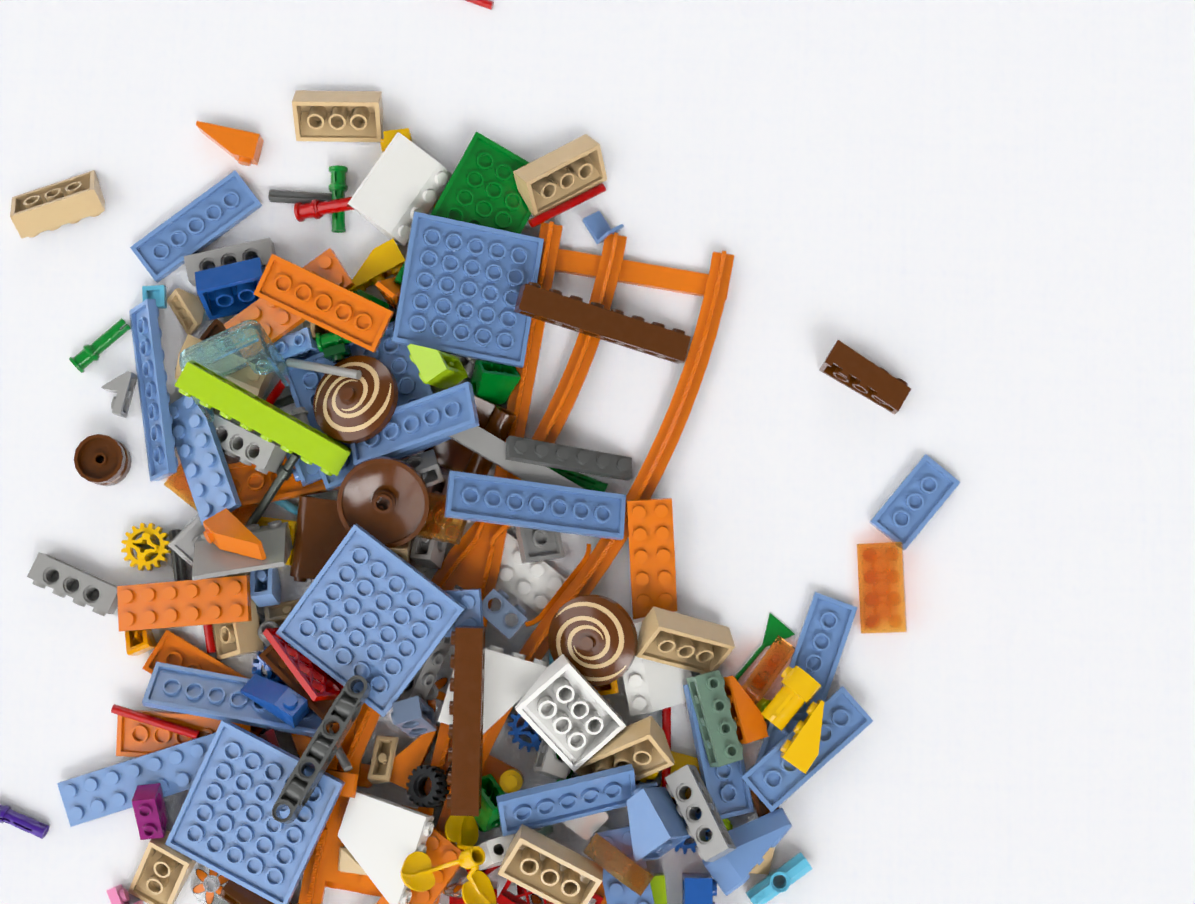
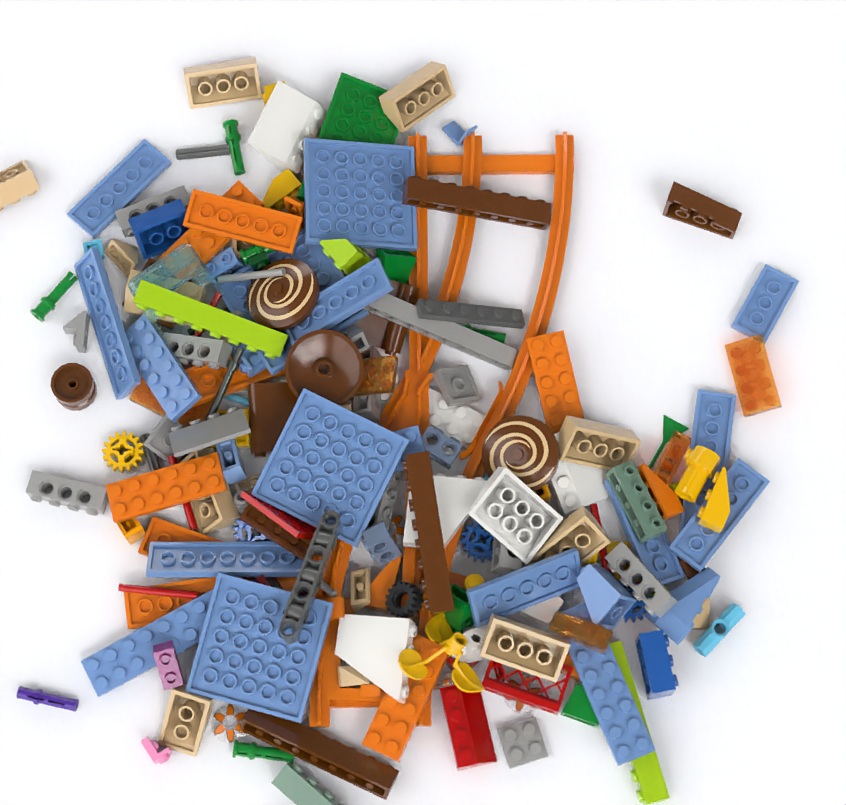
camera: 10 degrees left, 10 degrees down
(232, 536) = (201, 418): orange slope -> none
(239, 144) = (143, 118): orange slope -> none
(277, 699) = (262, 549): blue slope -> none
(317, 209) = (220, 156): red pin -> none
(535, 505) = (451, 352): medium blue plate -> none
(567, 205) = (427, 119): red bar -> none

